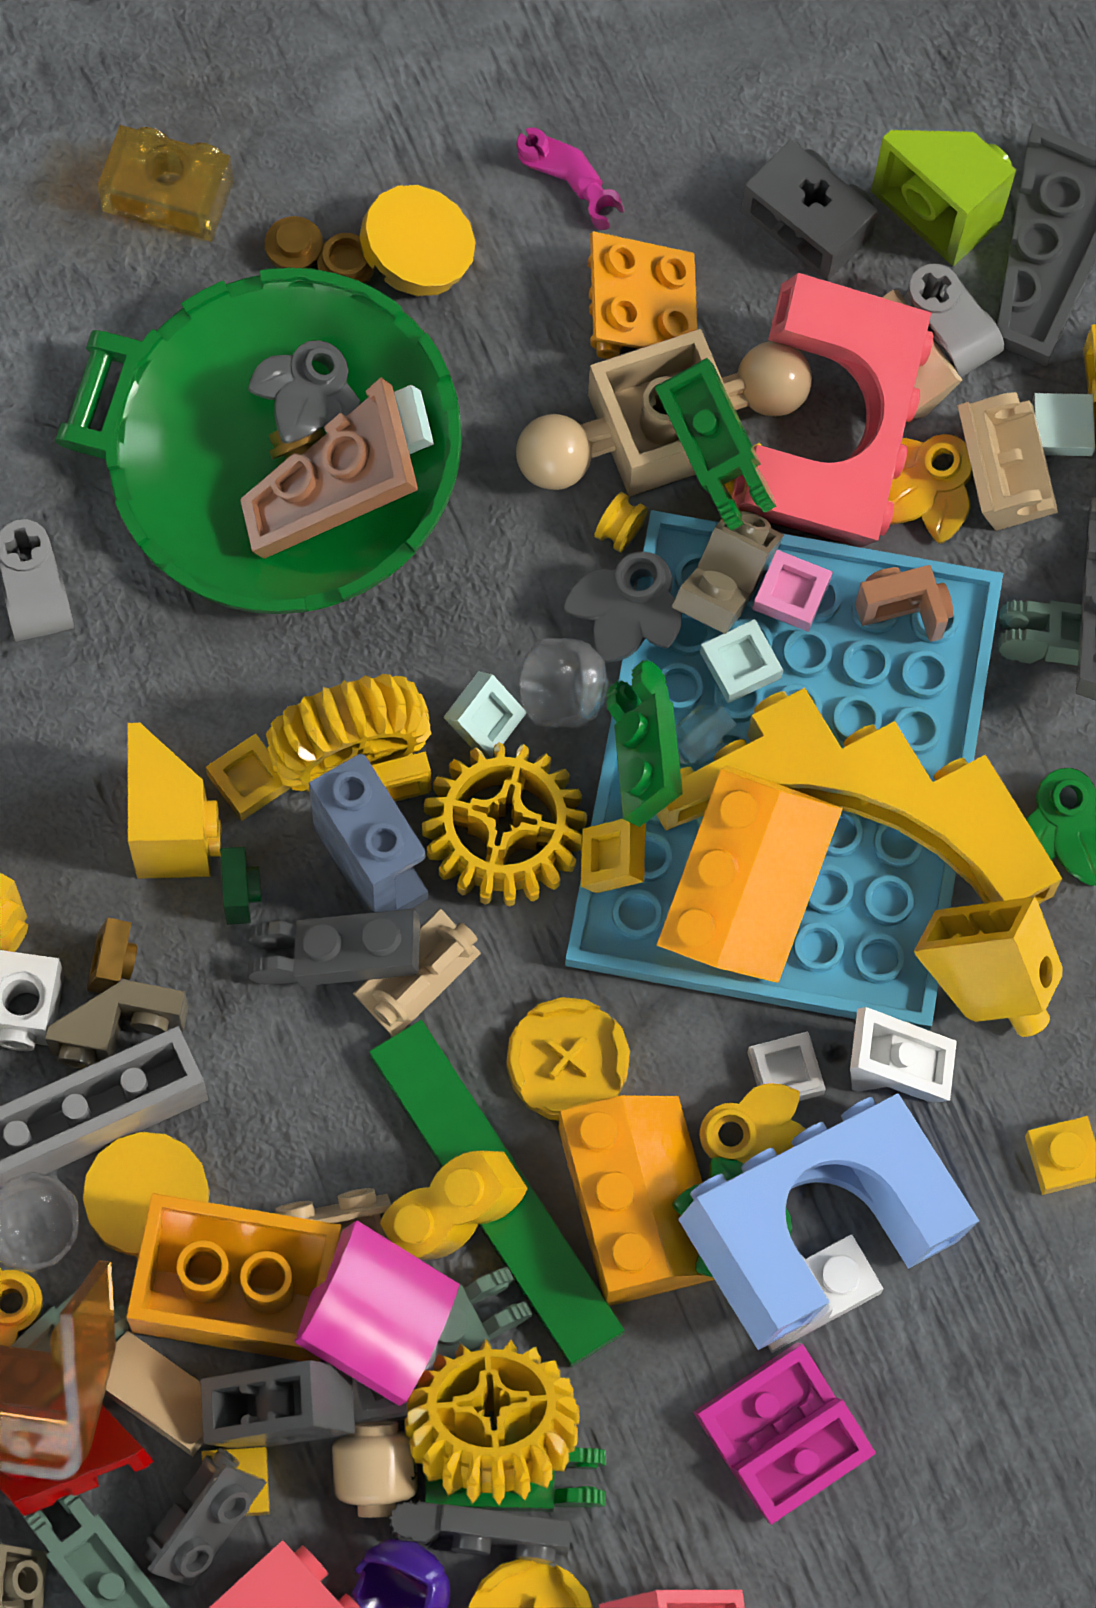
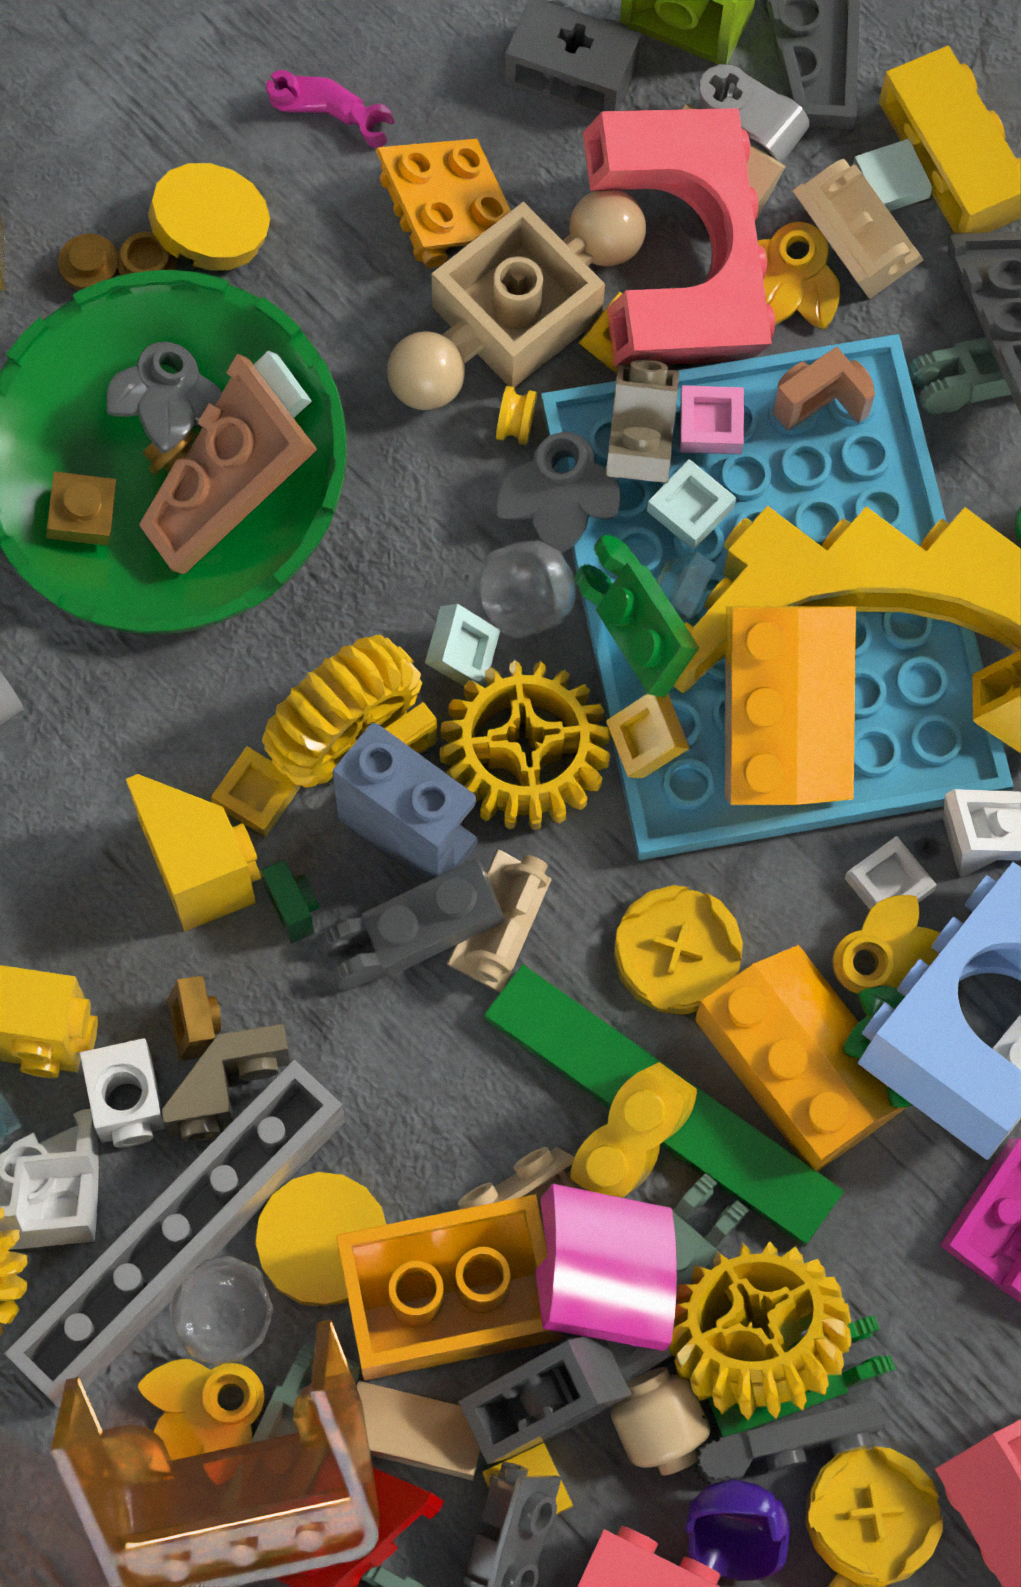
camera: 20 degrees left, 0 degrees up
(194, 466) = (81, 508): none -> pearl gold plate
(714, 438) = (582, 297): green hinge -> none

